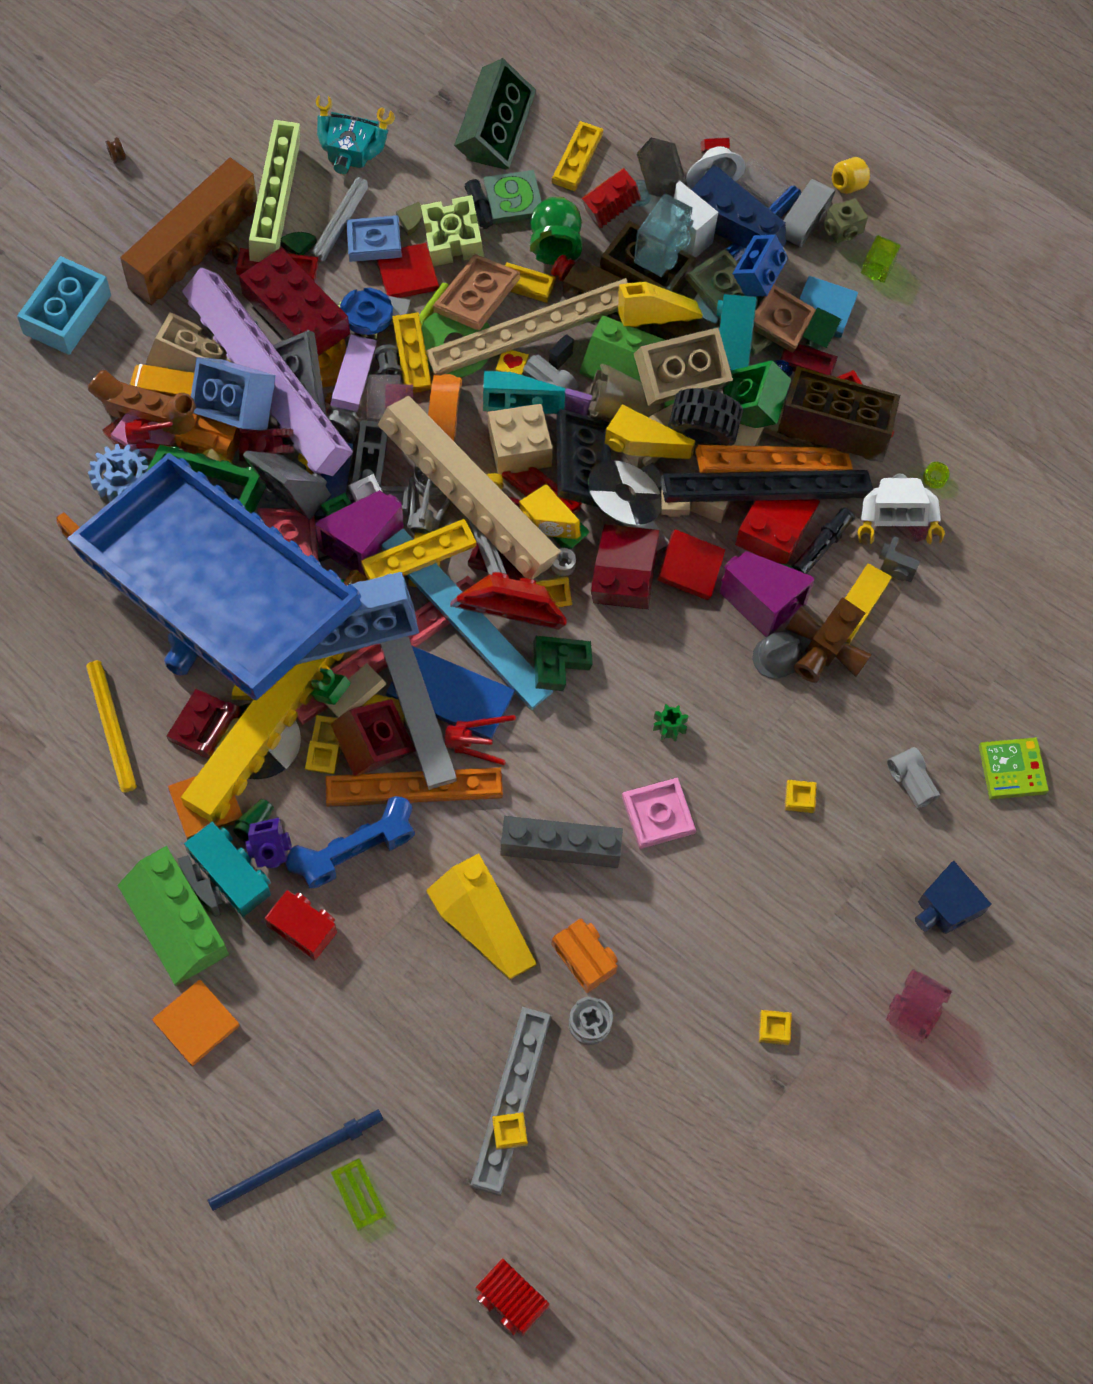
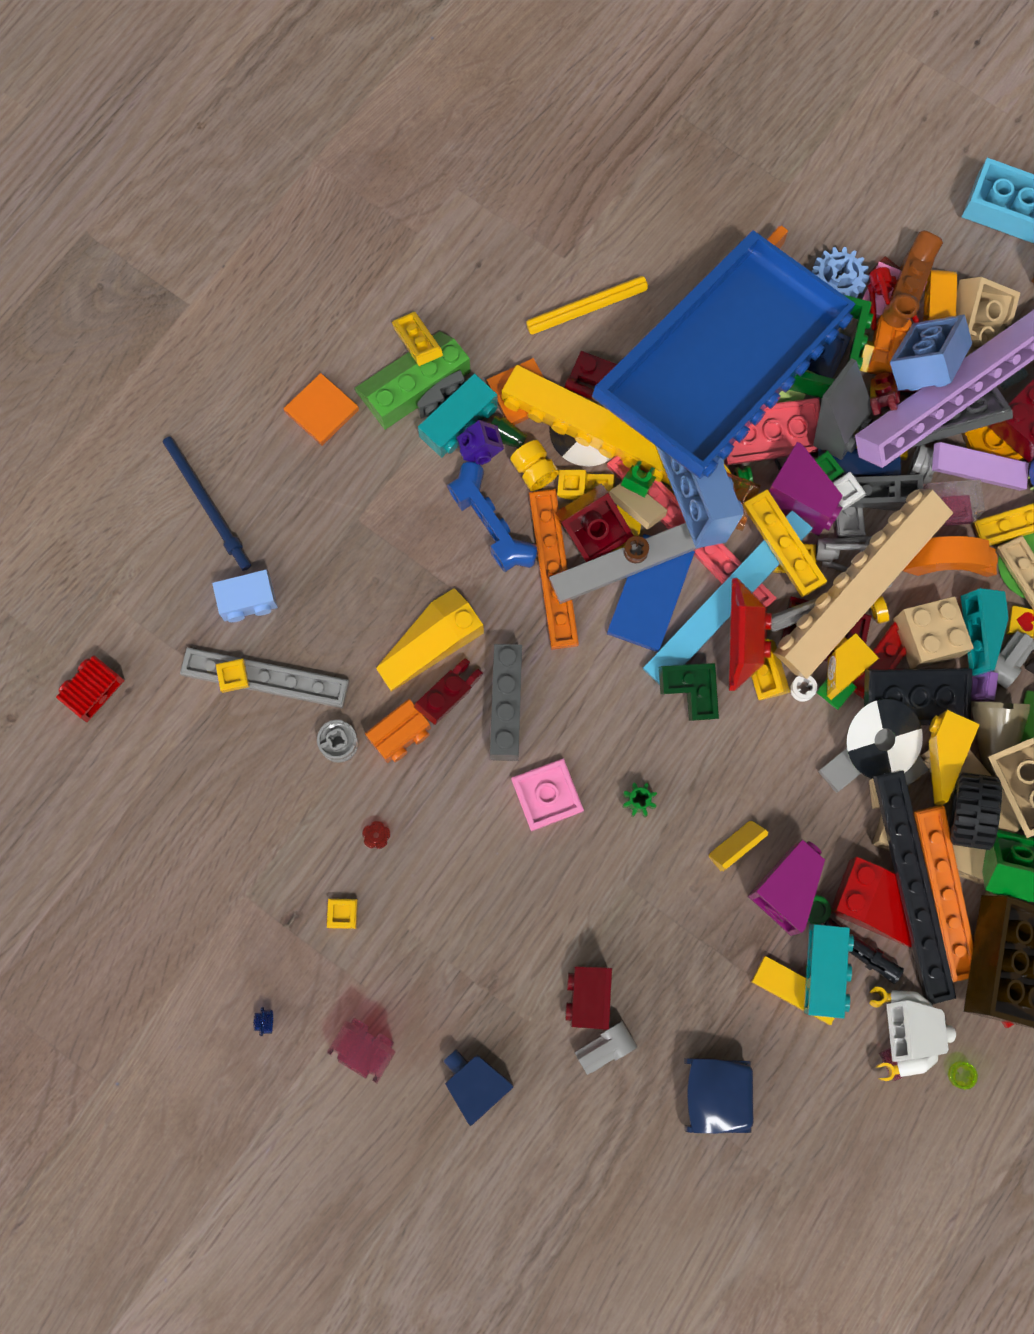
camera: 90 degrees right, 10 degrees up
(130, 903) = (417, 338): none -> yellow tile
(298, 792) = (533, 463): none -> yellow wheel
(301, 924) = (411, 482): red brick -> none
(369, 1219) = (183, 565): clear neon green tile -> none
(388, 362) = (1002, 500): dark grey bush -> none
(406, 703) = (644, 551): none -> reddish brown bush
(416, 1114) = (245, 596): none -> light blue brick
(459, 737) = (602, 604): red plant -> none
(547, 899) = (447, 693): none -> dark red hinge
(625, 566) = (804, 746): dark red slope -> none
(686, 986) = (376, 827): none -> clear red plate
(691, 564) = (816, 814): red tile -> none
(719, 637) = (737, 845): none -> yellow slope
(779, 653) = (732, 915): dark grey piece -> none
(800, 796) = (577, 933): yellow tile -> none
(829, 640) = (745, 956): reddish brown brick -> none
(846, 568) = (828, 971): none -> teal brick
(868, 781) = (589, 997): none -> dark red slope
(887, 1110) = (263, 1021): none -> clear blue plate
(898, 564) = (842, 1034): dark grey bracket -> none
(959, 675) = (719, 1096): none -> dark blue piece
(1013, 768) = (627, 1156): lime tile -> none

